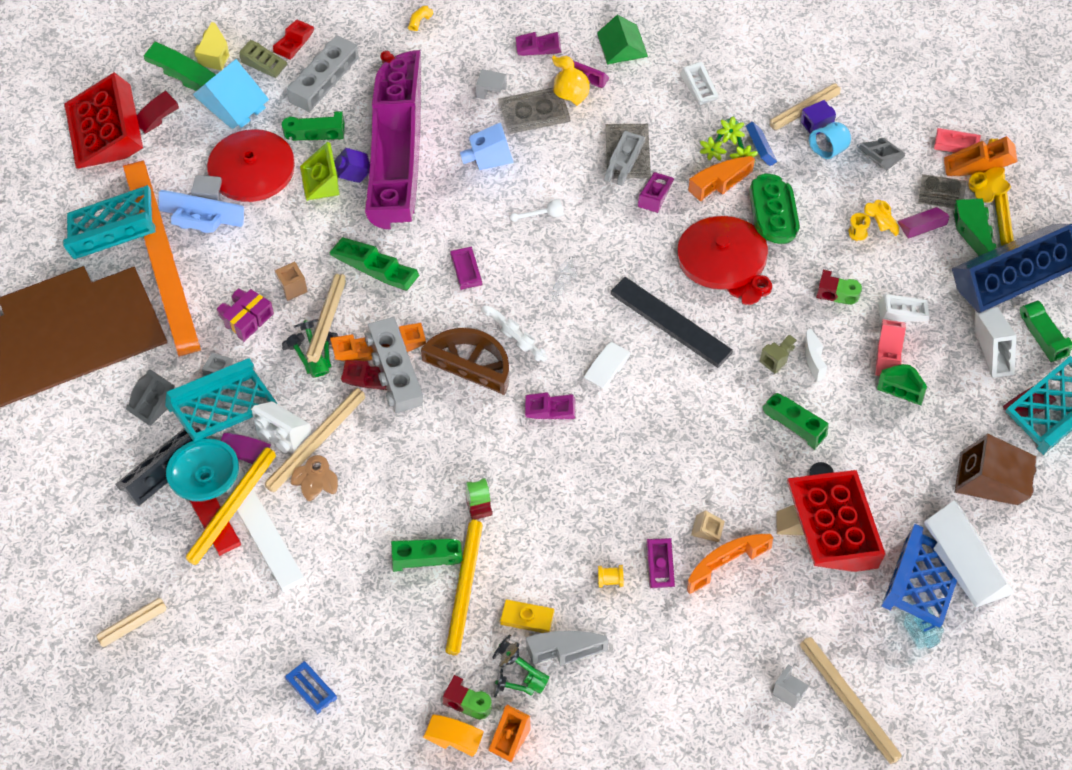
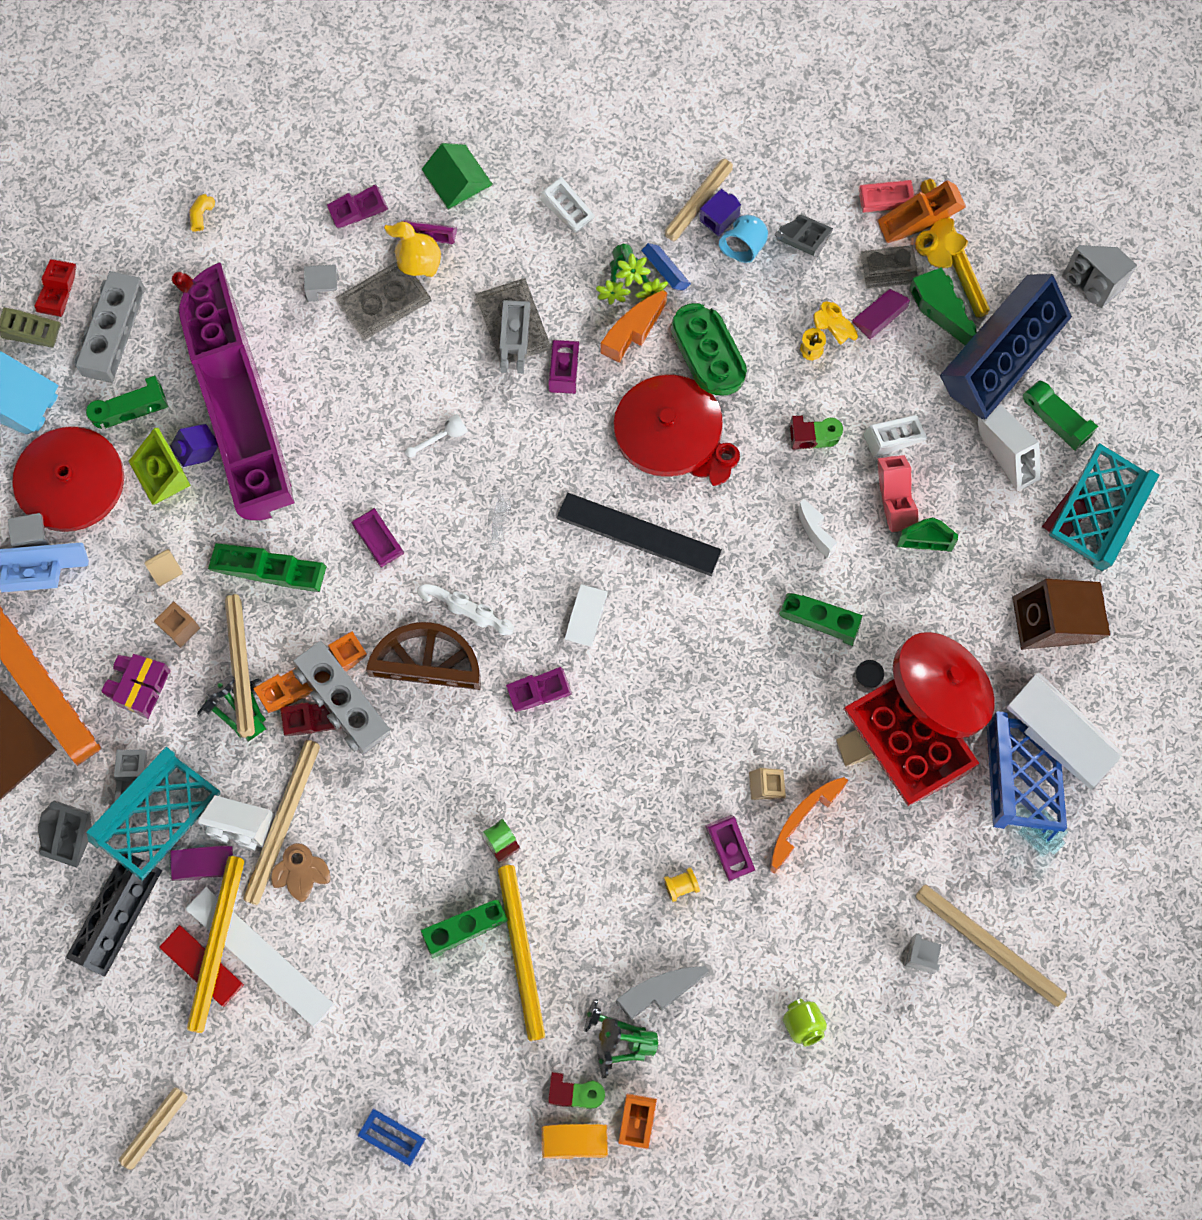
camera: 20 degrees left, 15 degrees up
(199, 461) = (153, 899): teal dish -> none
(296, 241) = (163, 567): none -> tan slope
(488, 148) = (349, 373): light blue torso -> none
(527, 616) = (605, 964): yellow plate -> none
(673, 706) = (805, 1022): none -> lime head
(776, 356) = (774, 541): olive piece -> none
(876, 490) = (943, 685): none -> red dish

